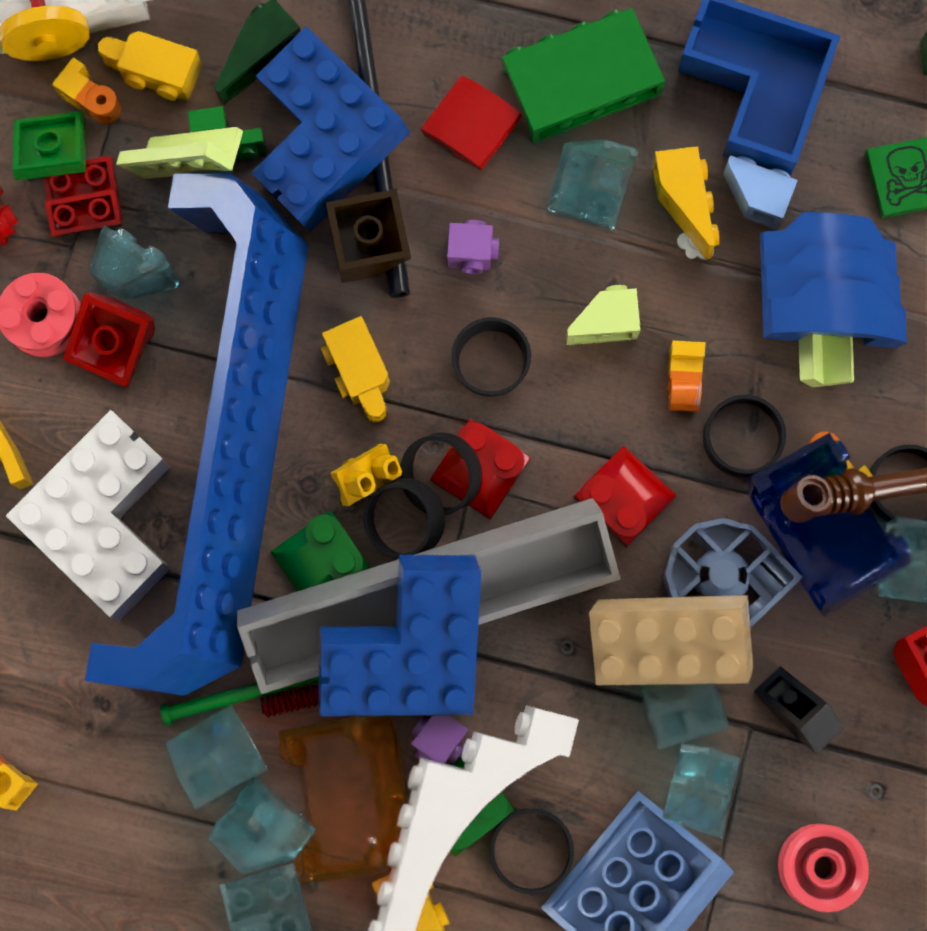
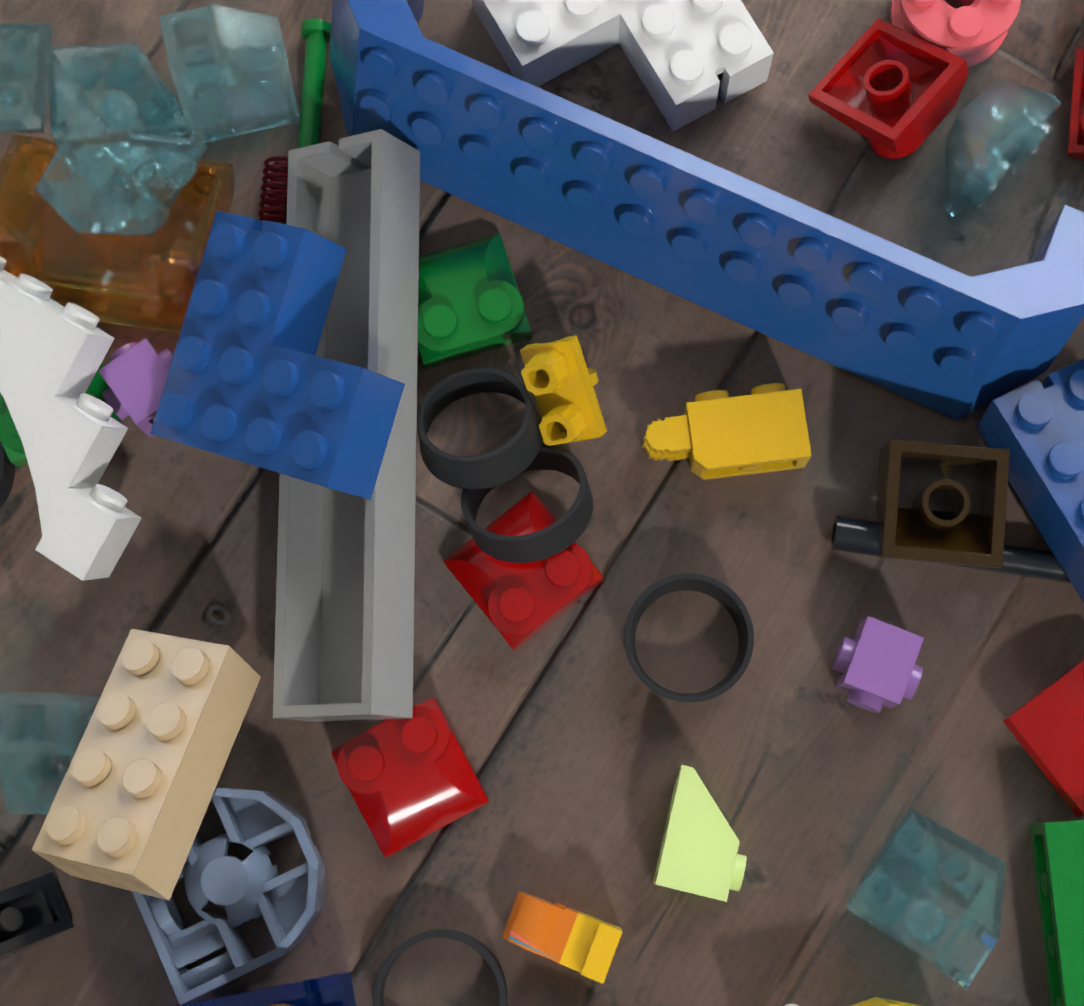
camera: 110 degrees right, 0 degrees up
(317, 793) = (119, 181): none -> clear light blue slope

